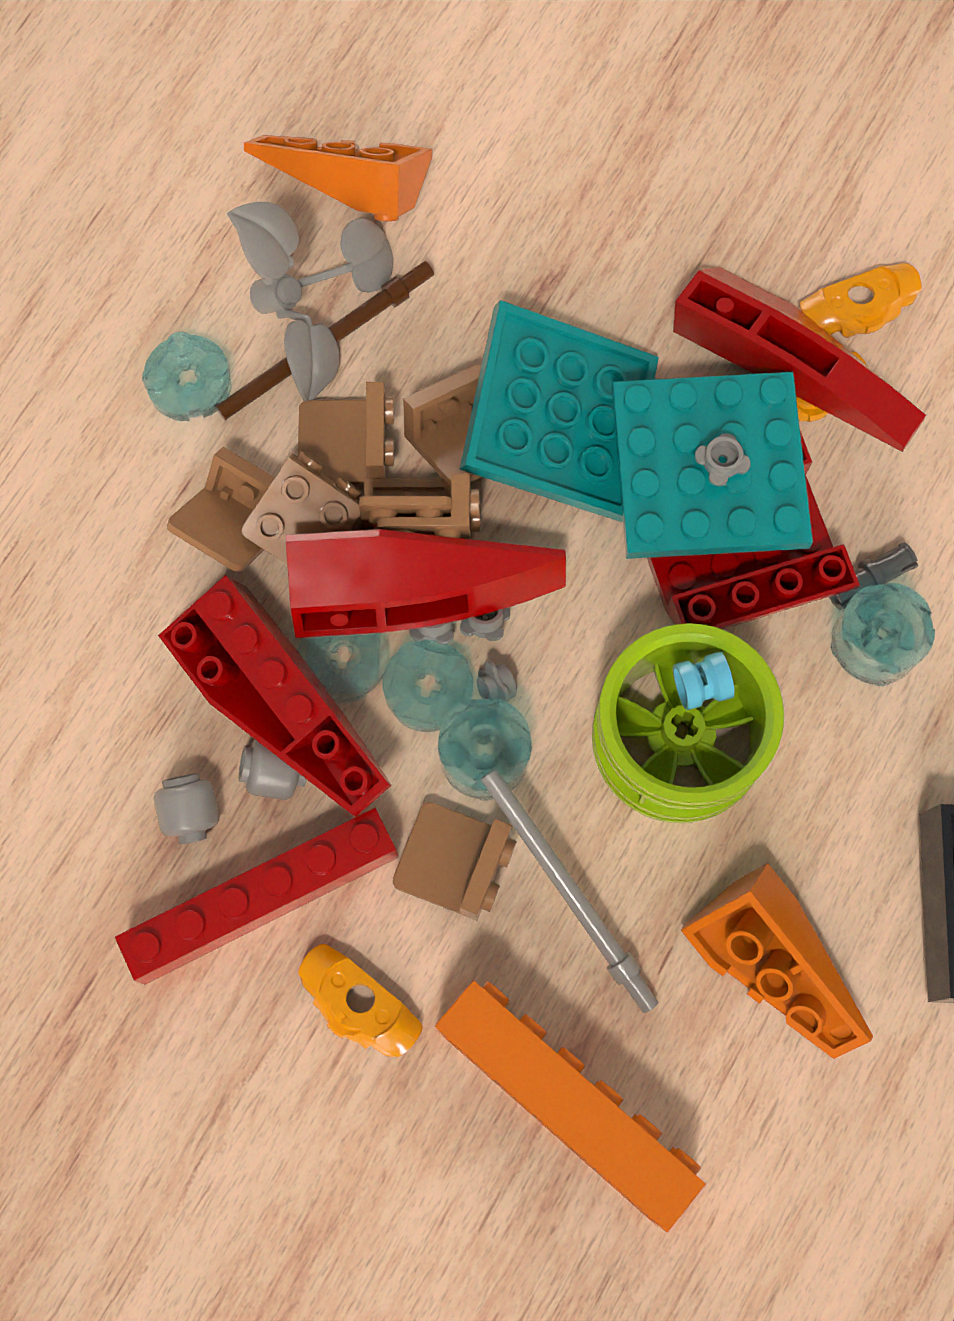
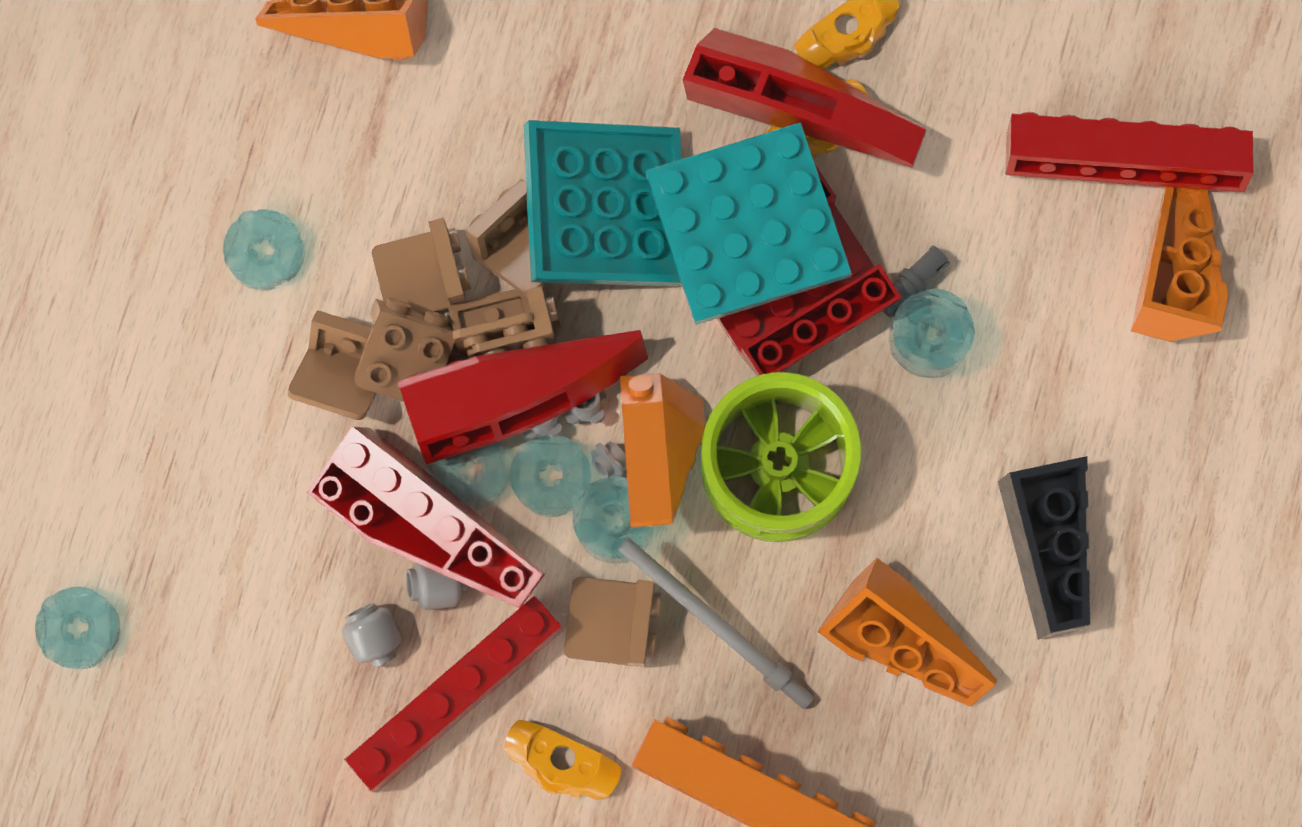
camera: 10 degrees left, 5 degrees up
(268, 241) = (310, 120): light grey plant -> none
(393, 293) = (427, 125): reddish brown bar -> none
(556, 677) = (661, 443): none -> orange wedge
(703, 680) = (793, 415): medium azure wheel -> none
(728, 447) = (756, 209): light grey plate -> none

